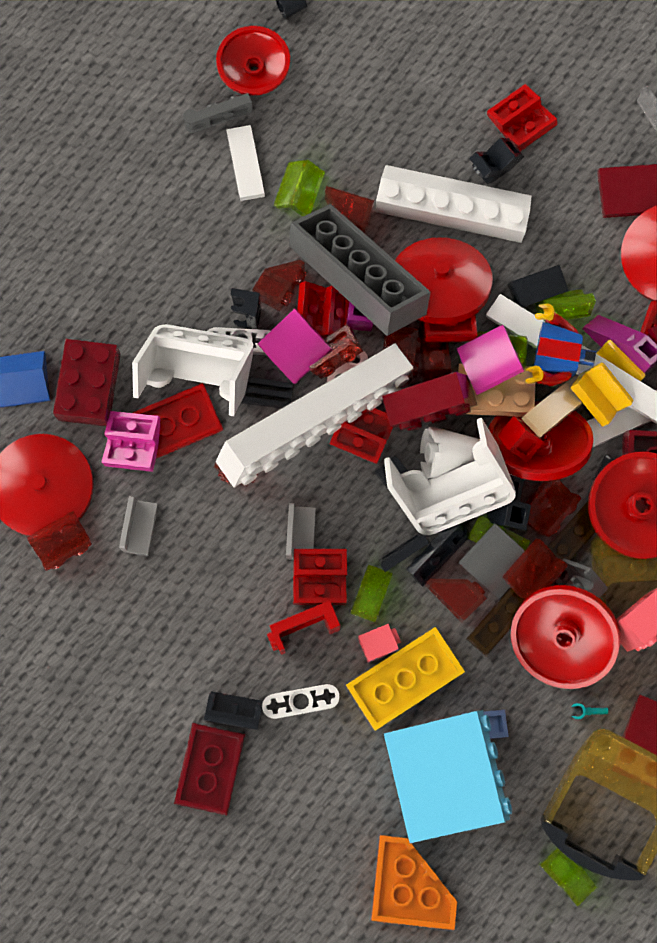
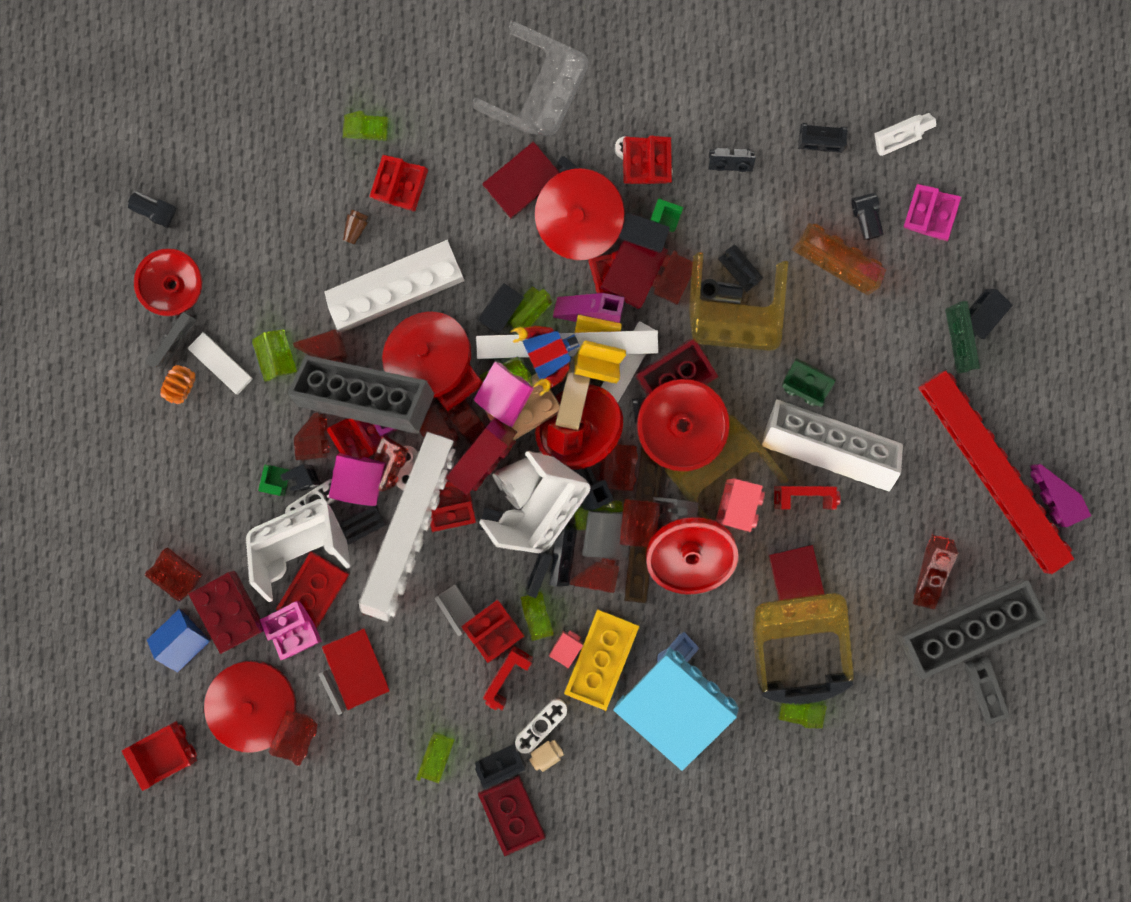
camera: 30 degrees left, 10 degrees up
(64, 315) = (173, 575): none -> clear red bracket
(164, 519) = (355, 669): none -> red tile
(177, 658) = (435, 757): none -> clear neon green panel
(195, 152) = (177, 384): none -> orange gear
(216, 296) = (272, 482): none -> green panel
(286, 733) = (546, 755): none -> tan brick
(409, 889) = (702, 798): orange plate -> none
(455, 127) = (354, 226): none -> reddish brown cone
(496, 160) = (403, 232): black brick -> none
(523, 49) = (362, 126): none -> clear neon green slope
(589, 711) = (742, 590): teal hand -> none

